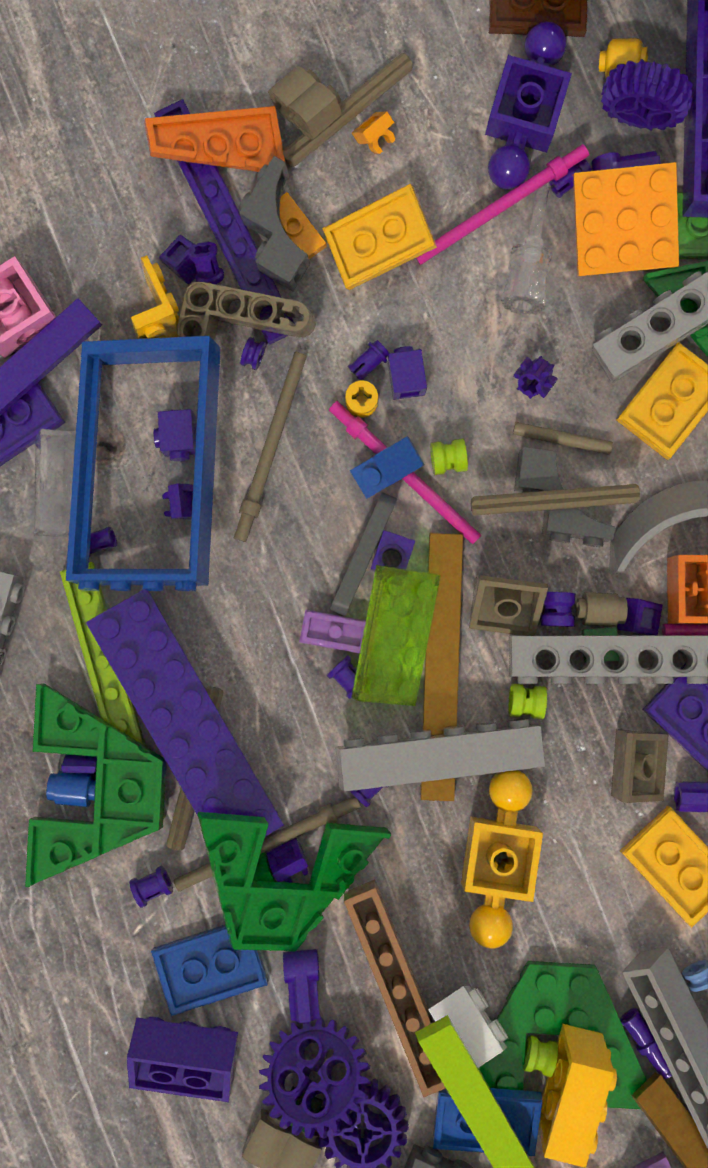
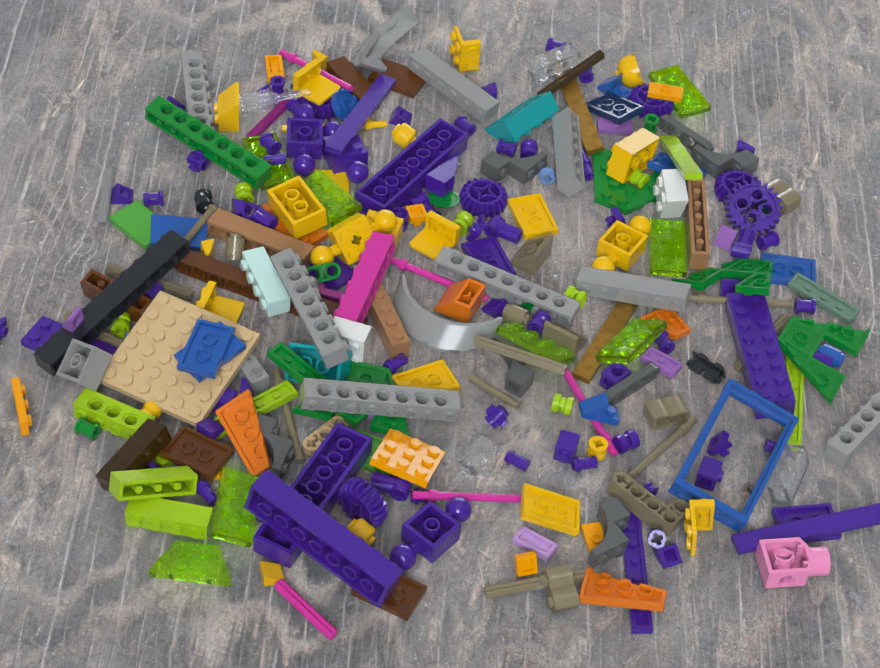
camera: 160 degrees left, 40 degrees down
(127, 923) = (824, 298): none -> sand green tile
(182, 1059) = (815, 242): dark purple slope -> none
(245, 656) = (713, 371): none -> black hinge
(265, 1017) = (768, 240): none -> dark purple bush
(288, 525) = (666, 412): none -> dark tan brick
(323, 431) = (627, 441): none -> dark purple wheel
(338, 985) = (725, 237): none -> medium lavender slope
(359, 719) = (675, 325): none -> orange wing
(374, 180) = (532, 541): none -> lavender tile
(427, 913) = (667, 248): none -> clear neon green plate
(468, 314) = (517, 460): none -> dark purple pin
(535, 926) = (616, 215): none -> dark purple tile
(543, 552) = (532, 341): none -> clear neon green plate

